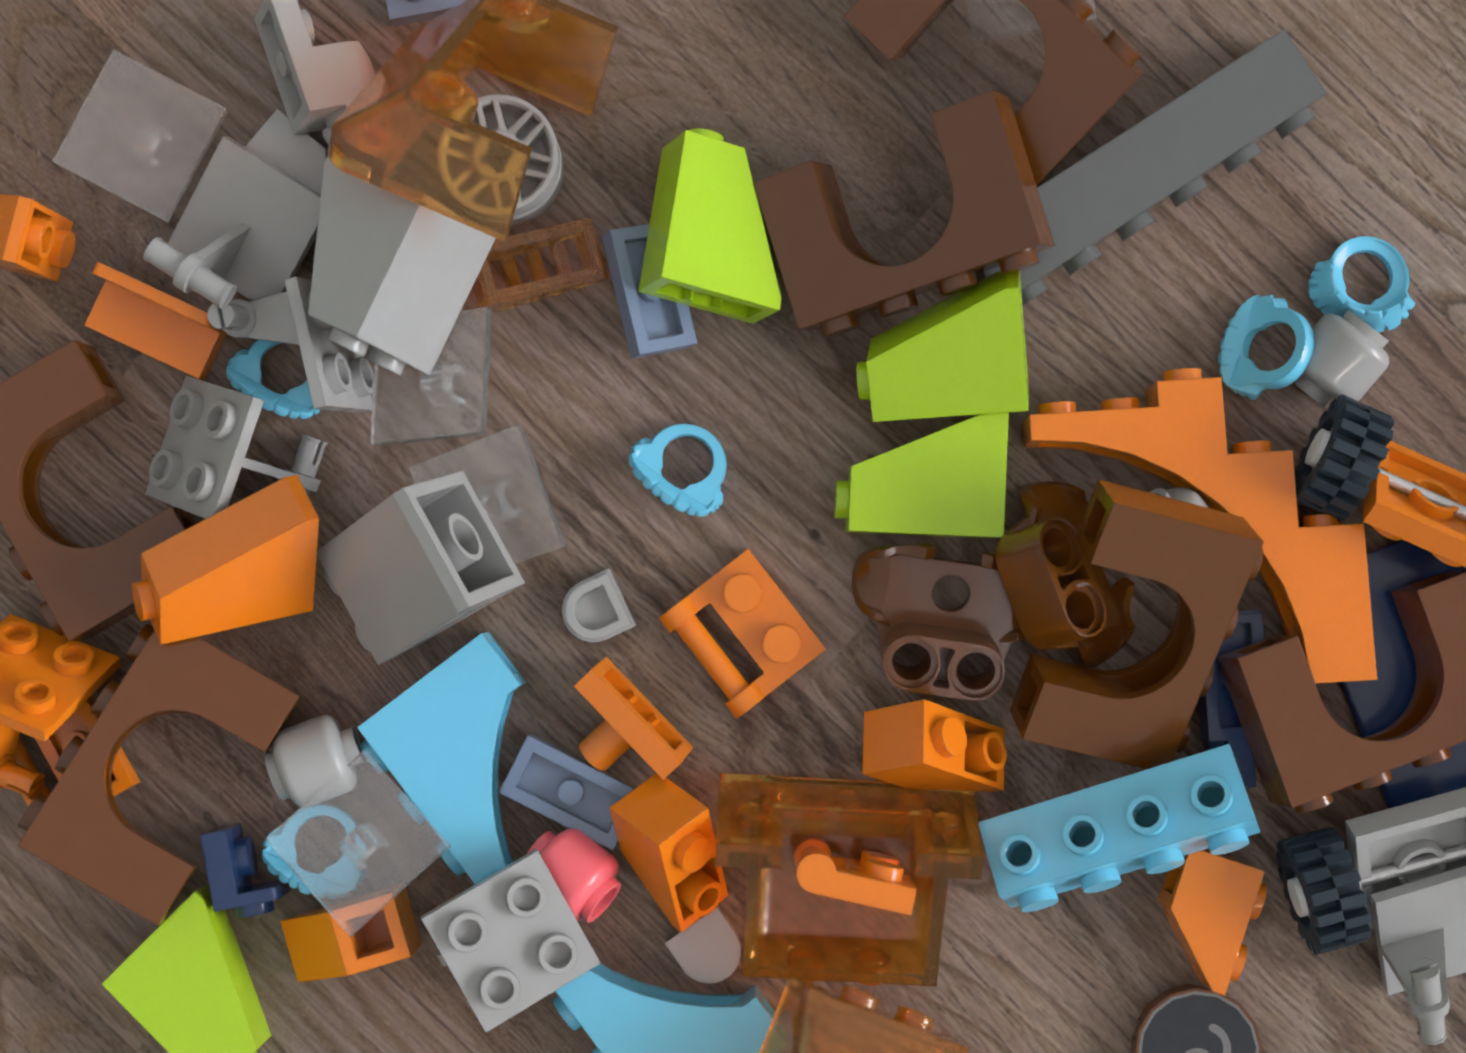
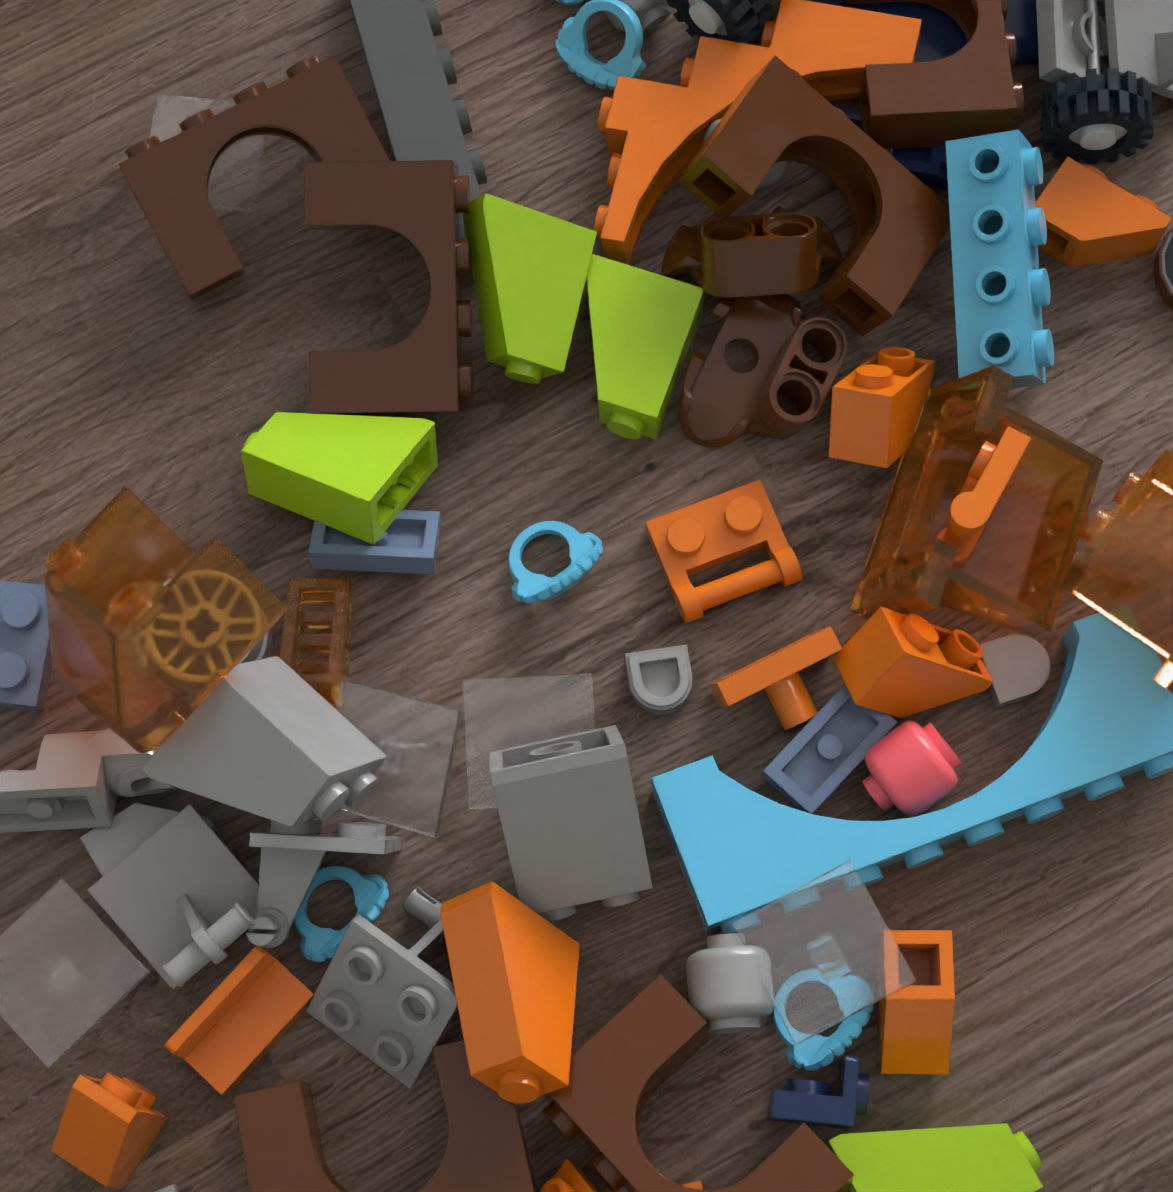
camera: 70 degrees left, 15 degrees down
(510, 940) = (959, 837): light grey plate -> none

